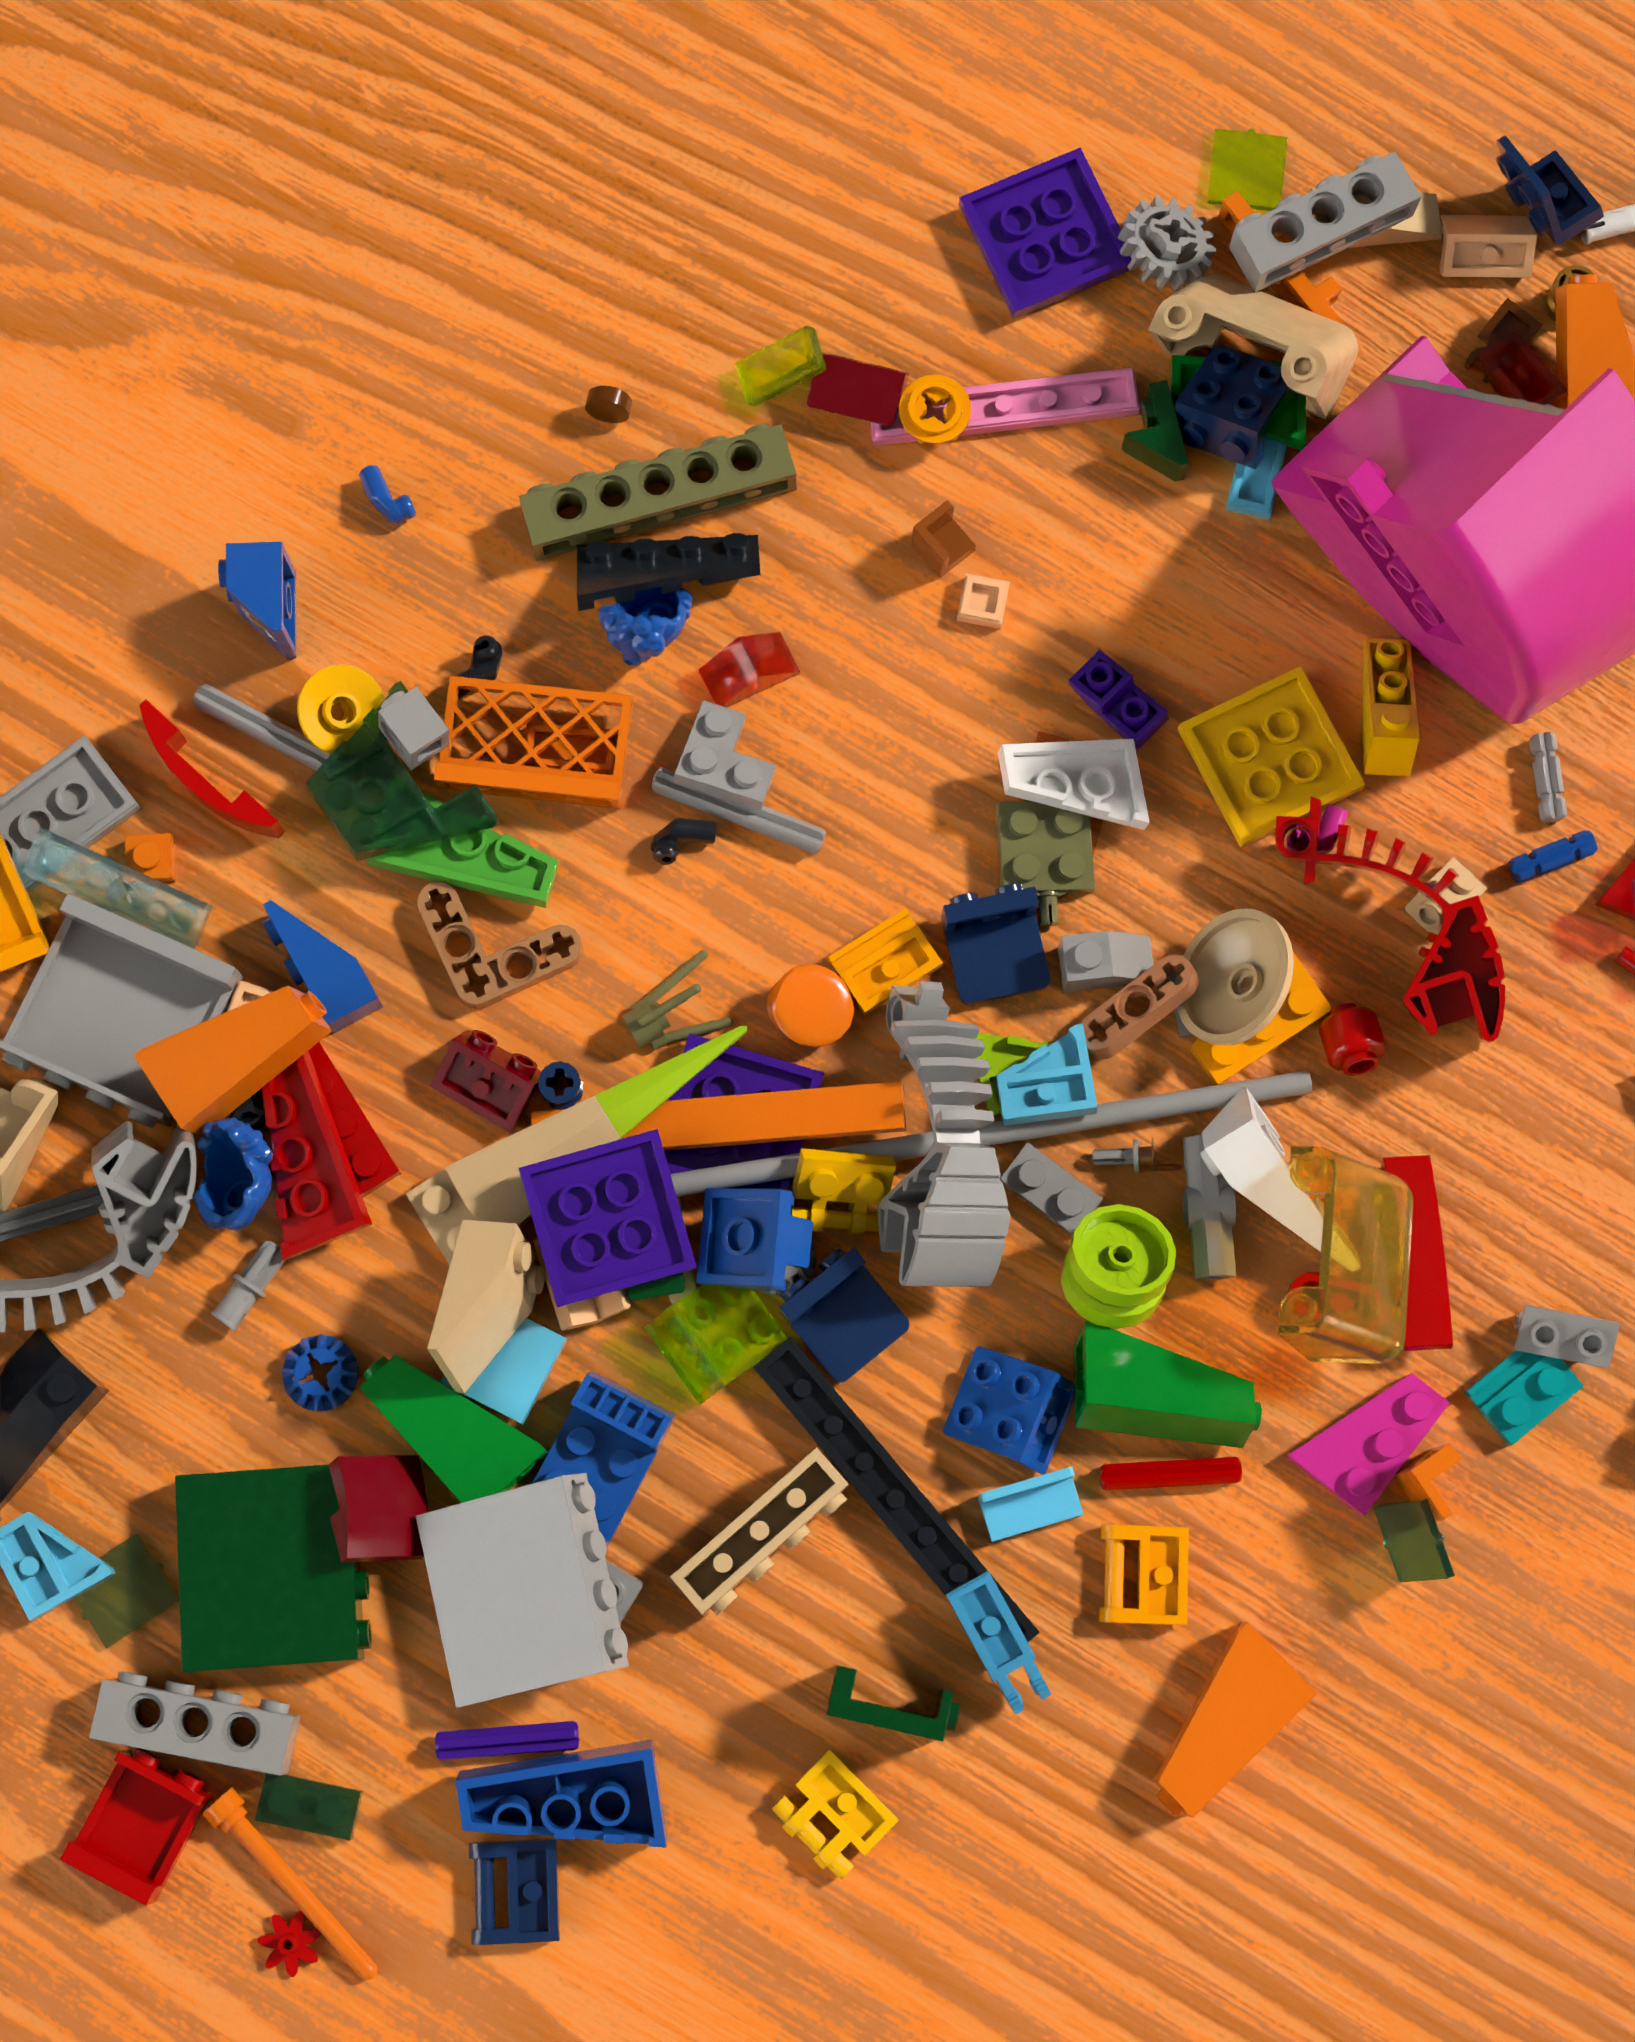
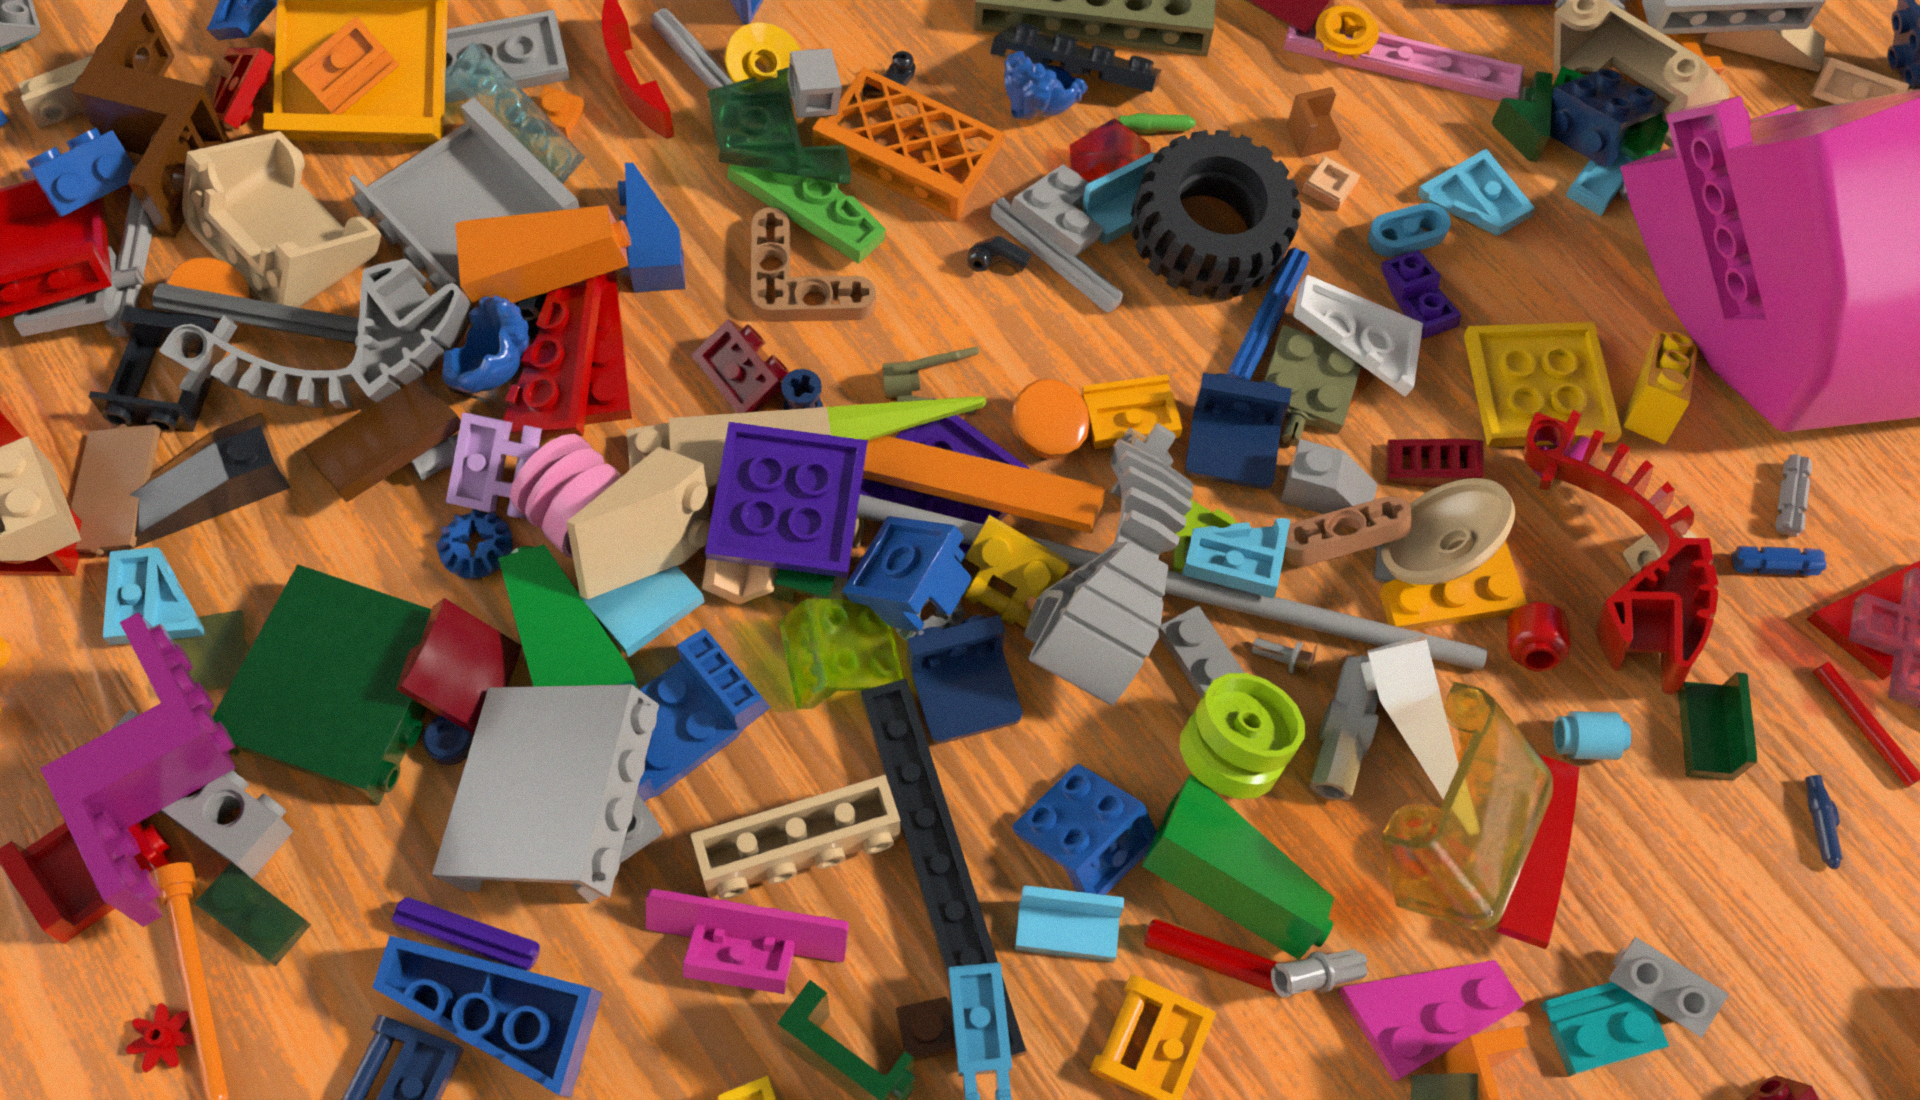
camera: 20 degrees right, 15 degrees down
(162, 1737) = (139, 772): none -> magenta bracket
(179, 1309) = (383, 439): none -> reddish brown tile
(287, 1292) = (481, 461): none -> lavender plate
(390, 1291) = (559, 484): none -> bright pink wheel
(397, 1577) = (446, 741): none -> dark blue tile
(755, 1645) = (743, 941): none -> dark pink bracket
(777, 604) = (1152, 123): none -> bright green piece
(786, 718) = (1112, 196): none -> medium azure panel
(916, 660) = (1228, 171): none -> black tyre
(945, 1647) = (926, 1028): none -> reddish brown plate
(977, 791) = (1269, 314): none -> blue axle
(1080, 630) = (1405, 230): none -> dark azure plate
(1139, 554) = (1479, 194): none -> medium azure wing
(1208, 869) = (1453, 450): none -> dark red slope
(1264, 1453) = (1318, 972): none -> light grey axle
(1431, 1119) = (1591, 735): none -> medium azure brick
(1541, 1062) = (1717, 728): none -> dark green panel

